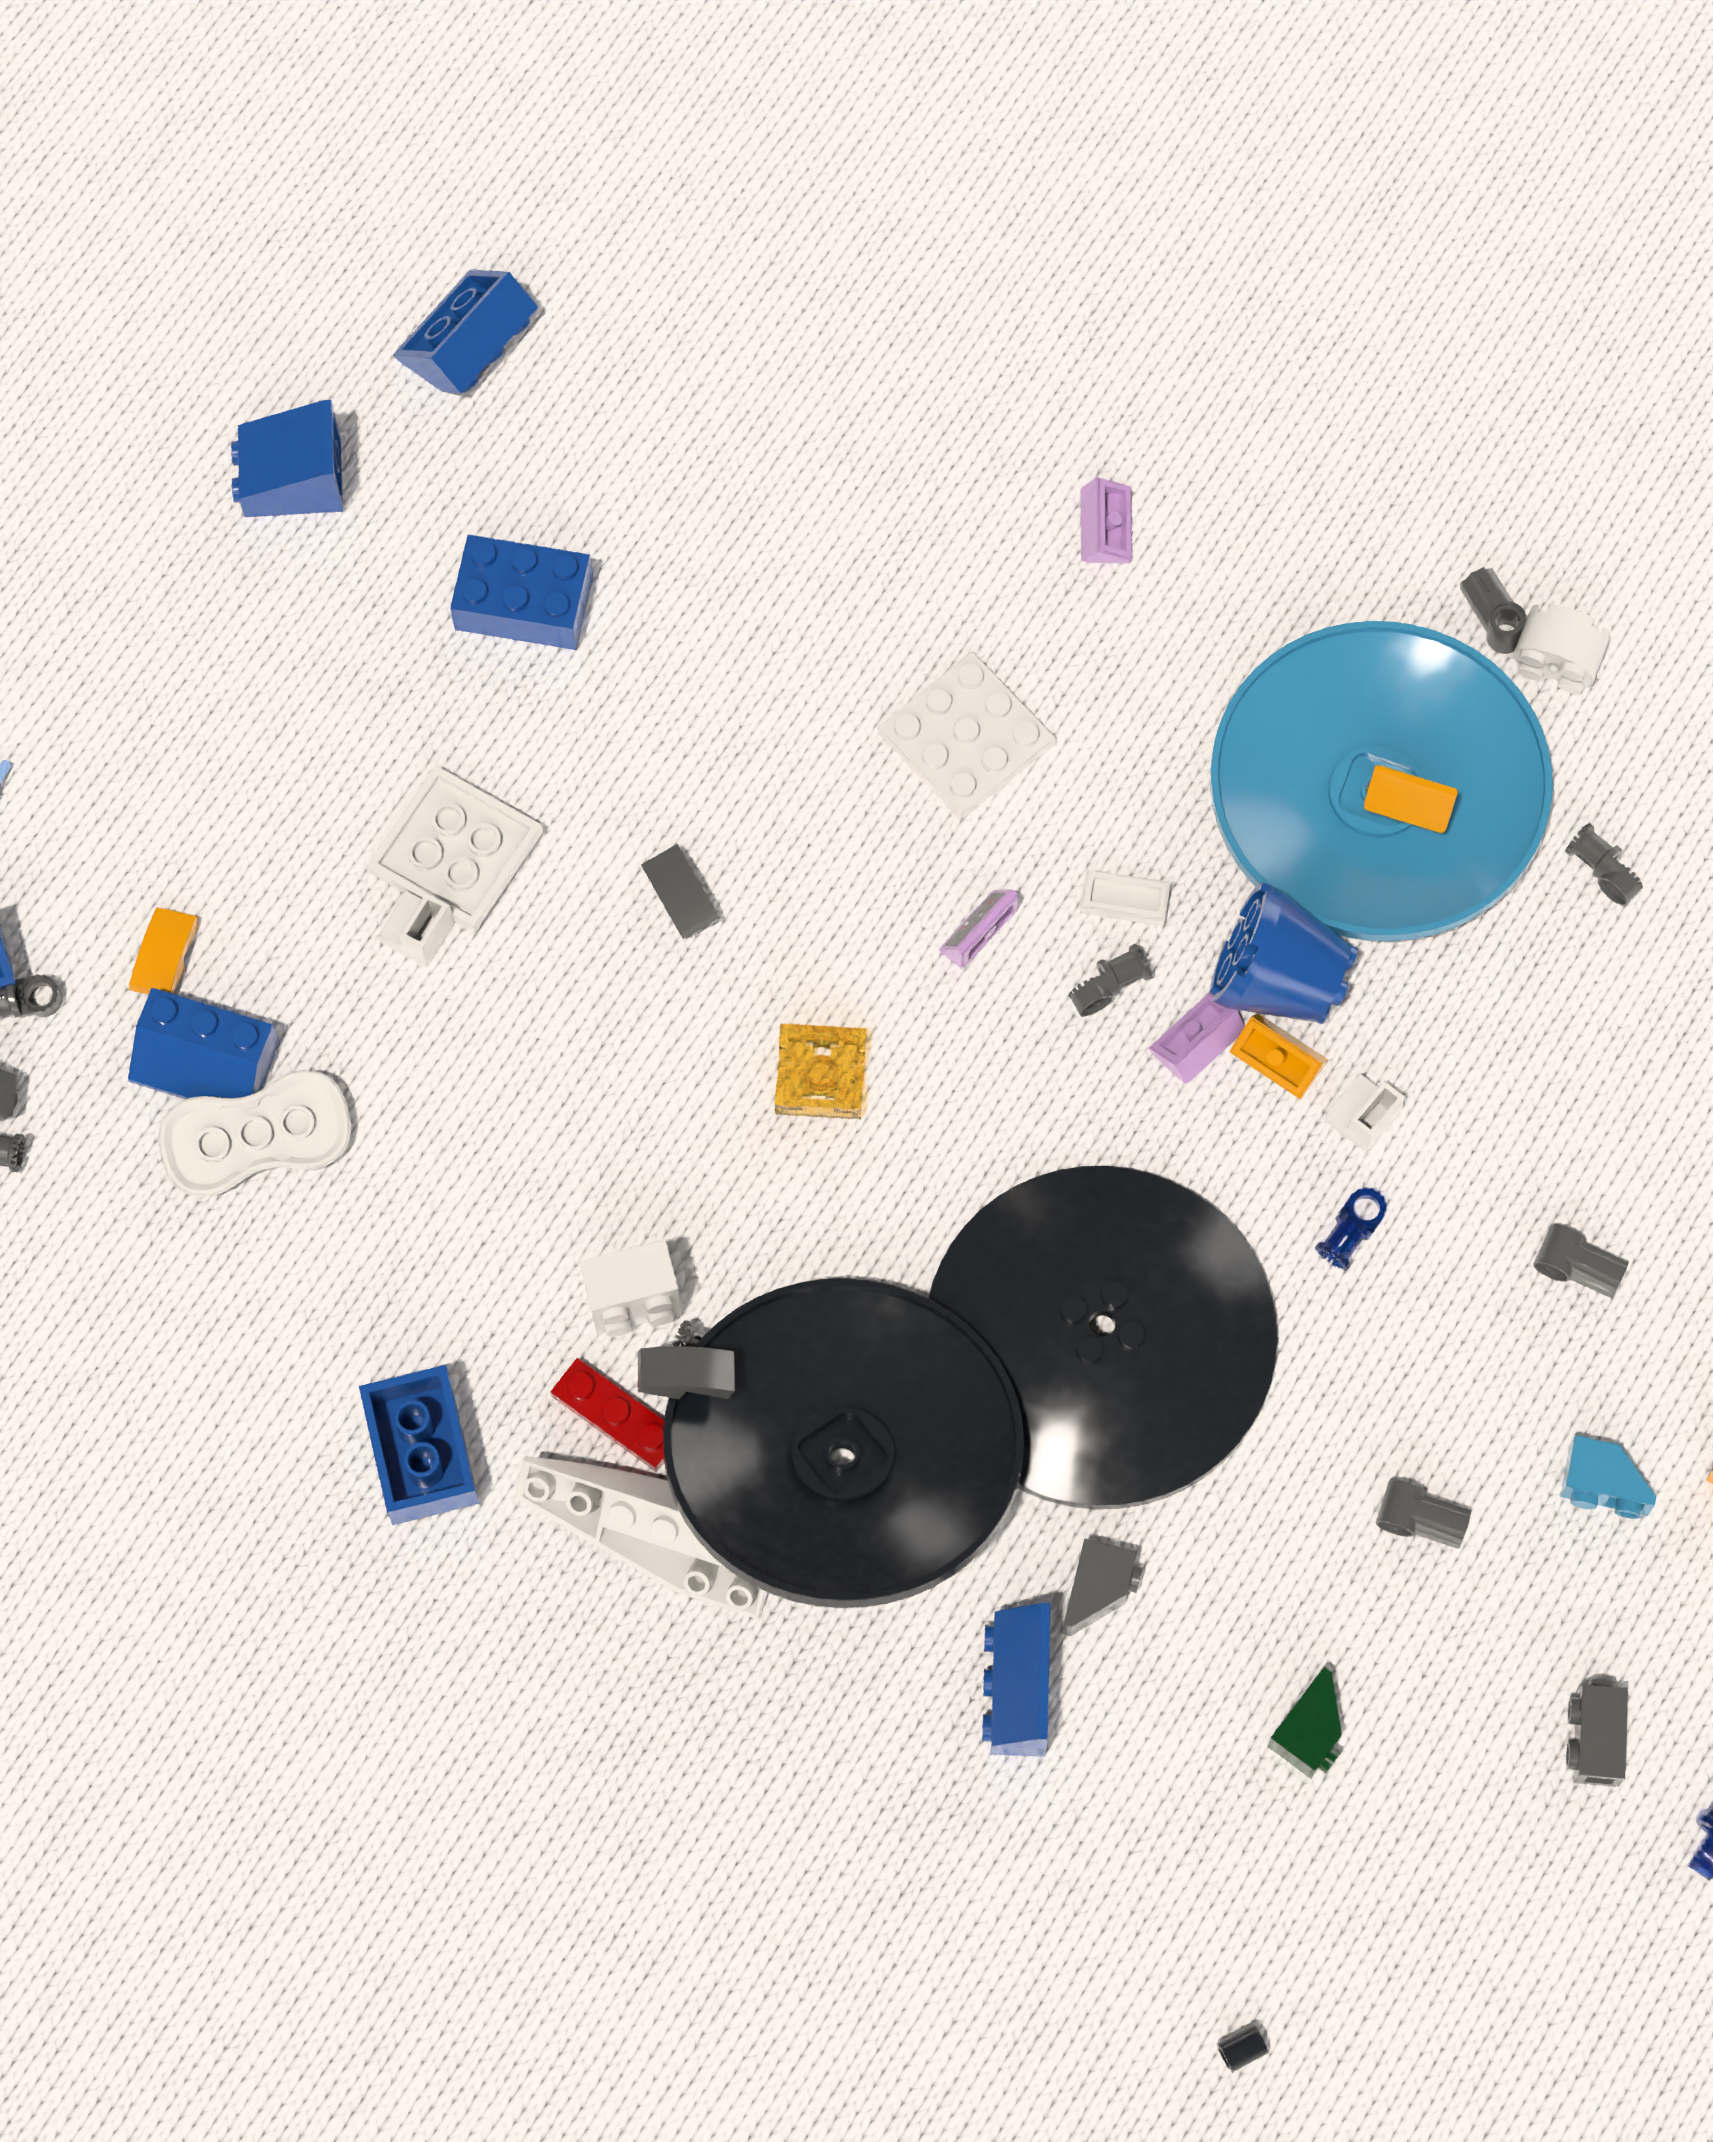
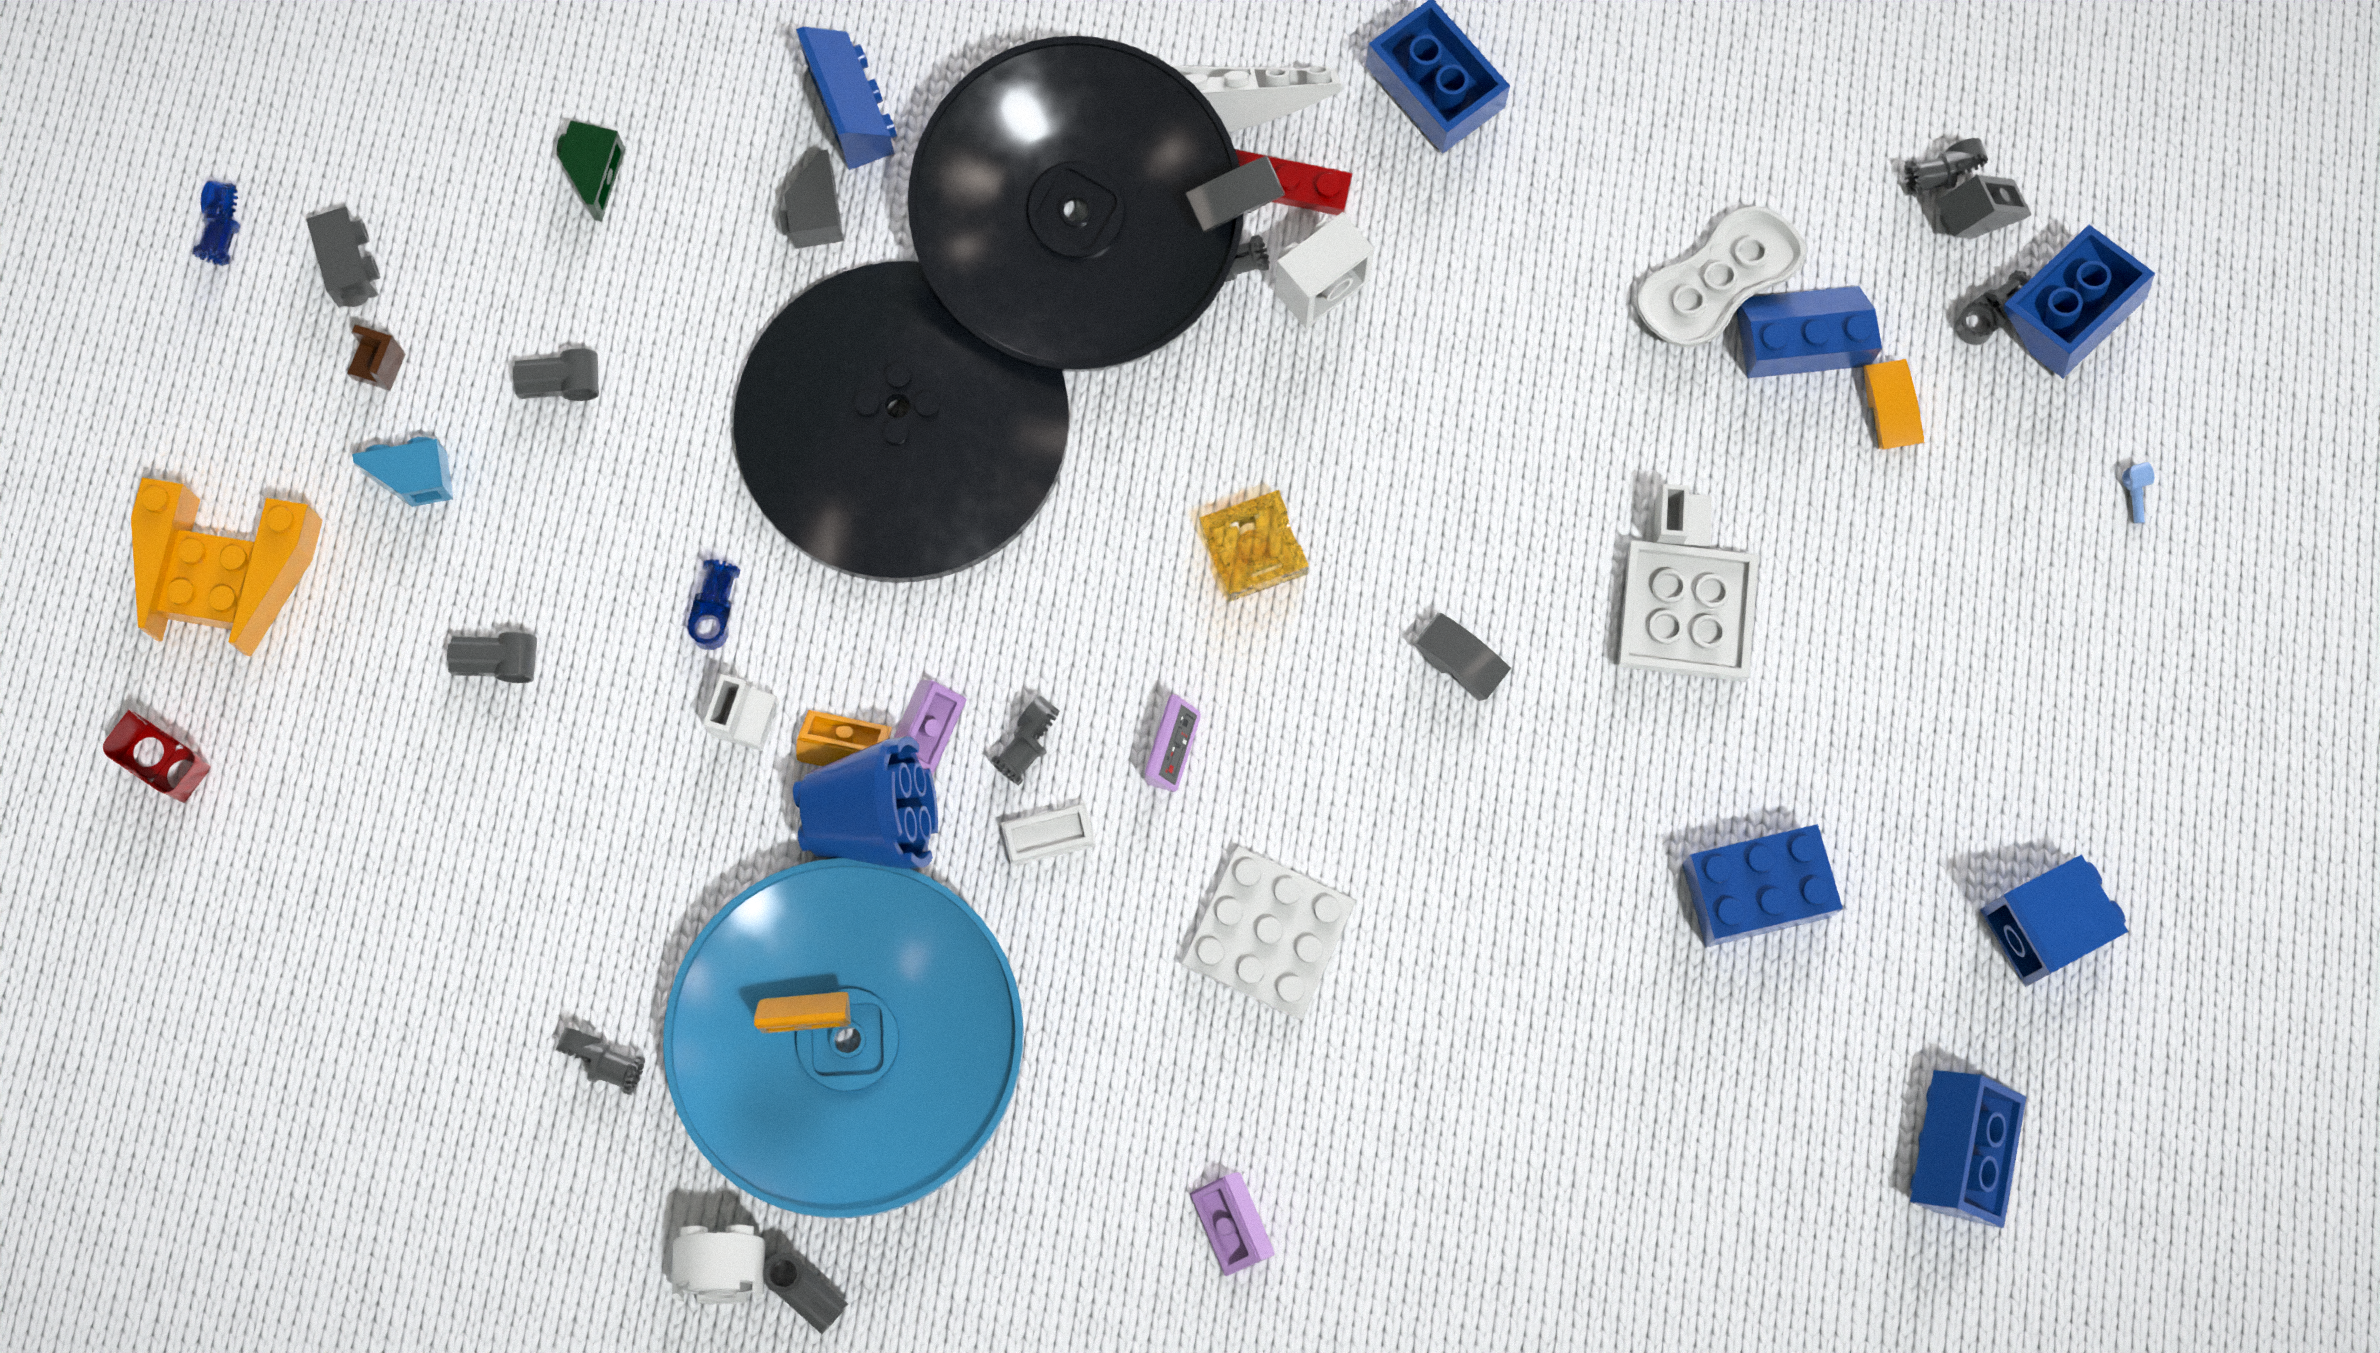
camera: 155 degrees right, 5 degrees up
(1601, 1612) = (376, 358): none -> reddish brown panel

